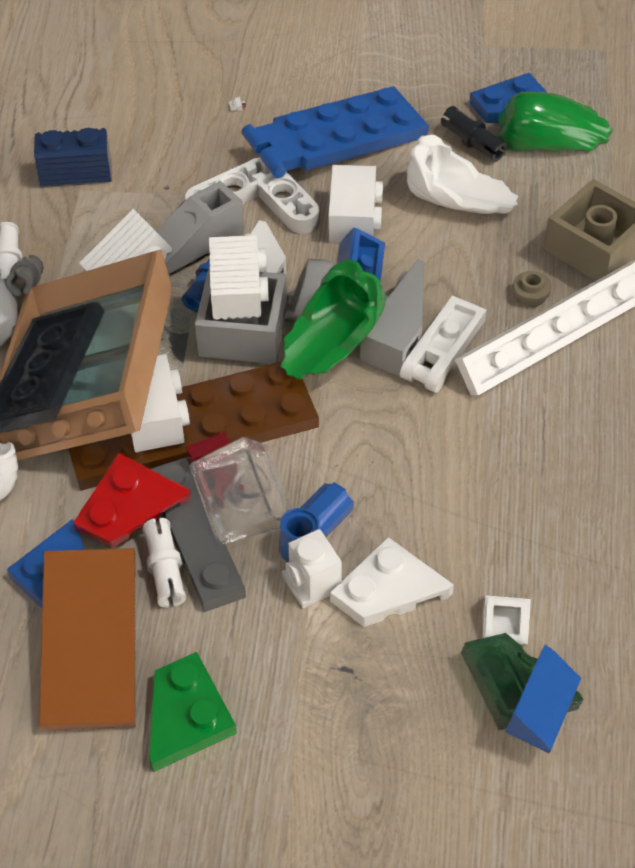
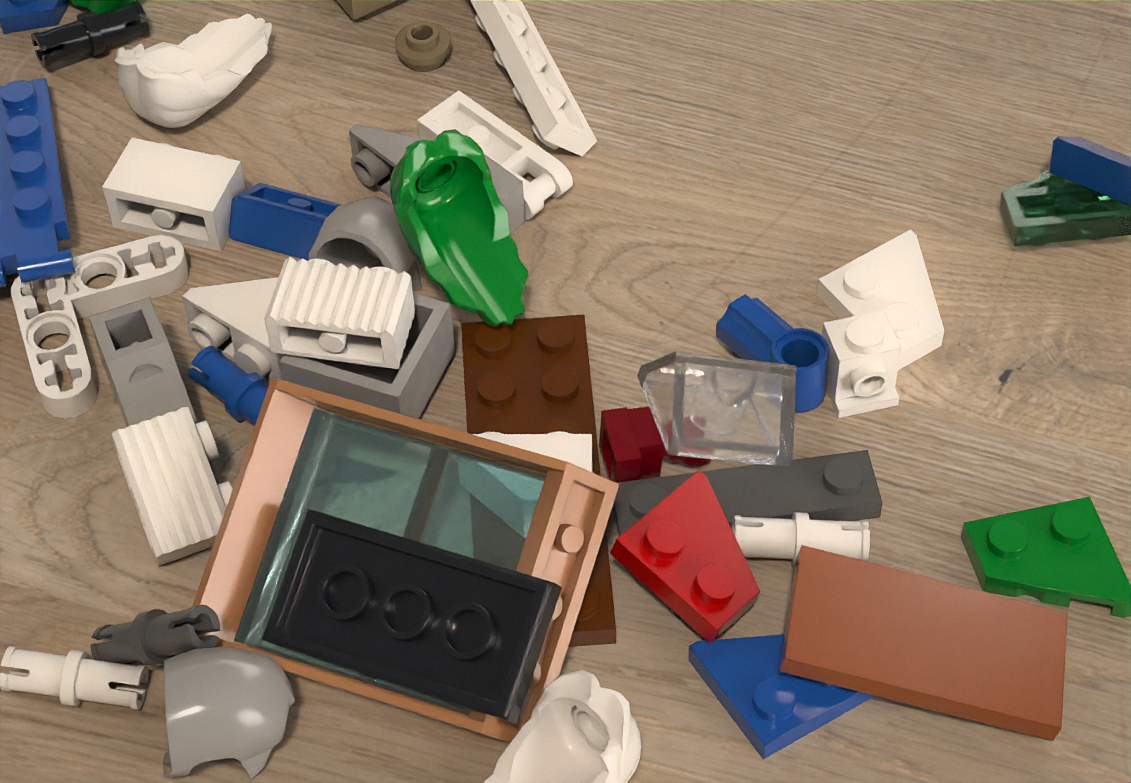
camera: 75 degrees left, 0 degrees up
(506, 616) = (963, 196): white slope -> none

